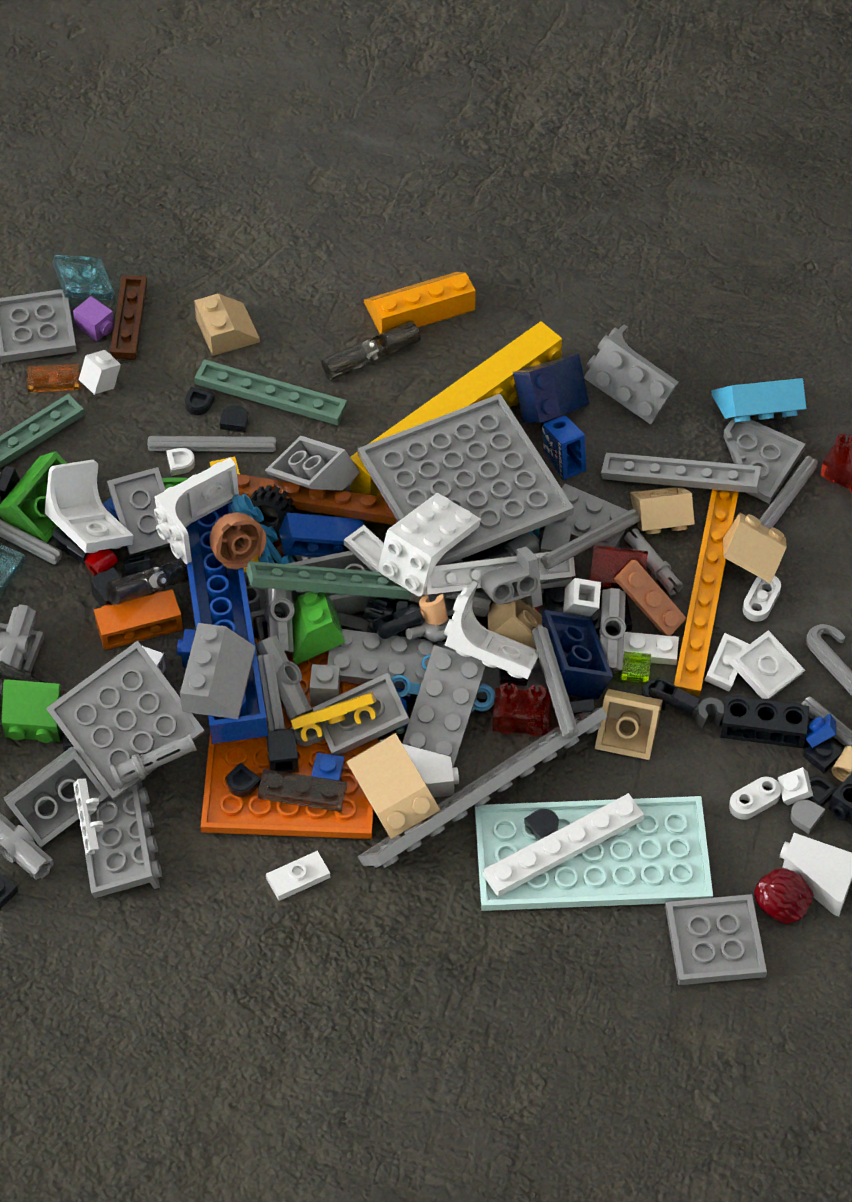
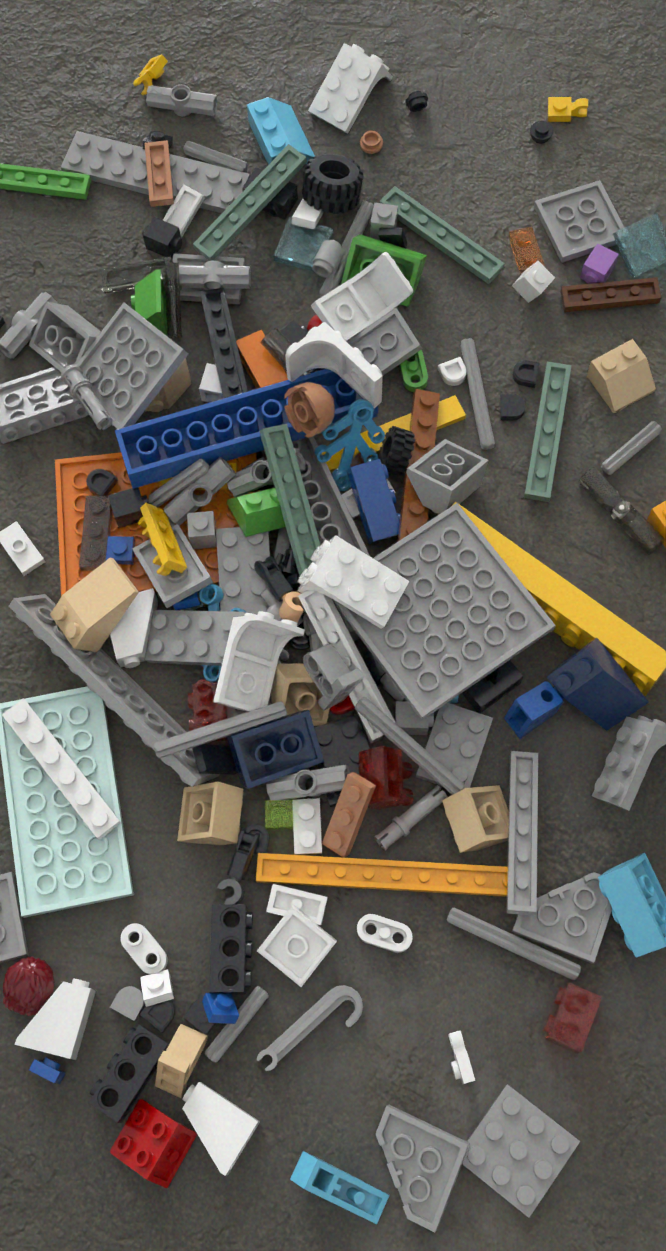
camera: 85 degrees right, 15 degrees up
(20, 539) = (327, 258): none -> light grey brick
(86, 808) = (31, 367): white piece -> none
(111, 640) = (223, 342): none -> black plate
(216, 672) = (162, 421): light grey slope -> none
(304, 332) = (630, 448): none -> light grey axle
(365, 547) = (361, 533): white tile -> none
(542, 823) = (80, 746): black tile -> none
(582, 597) = (333, 746): white brick -> none
(754, 546) = (429, 915): tan slope -> none

